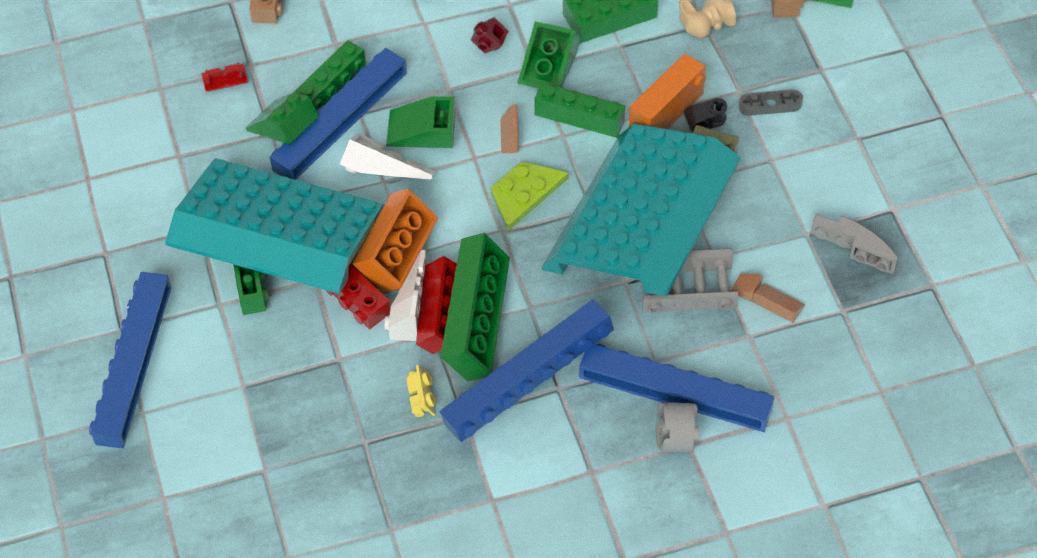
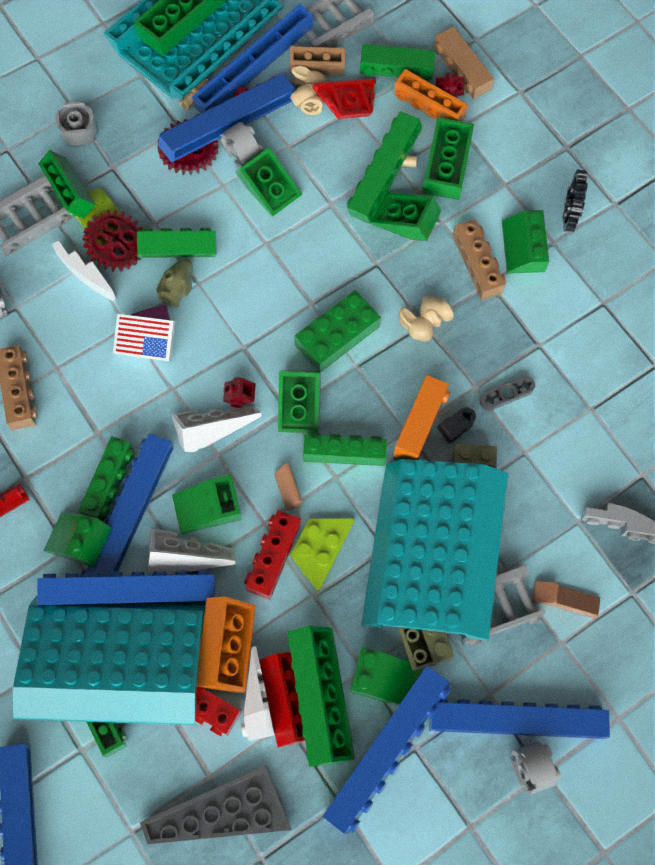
camera: 20 degrees left, 15 degrees up
(311, 166) = (125, 589): none -> blue brick
(353, 388) = (232, 809): none -> dark grey wing
(420, 383) = (302, 802): light yellow hinge -> none
(437, 59) = (203, 429): none -> white wedge
(473, 182) = (273, 555): none -> red brick
(539, 308) = (383, 677): none -> green slope
(605, 290) = (426, 647): none -> olive slope

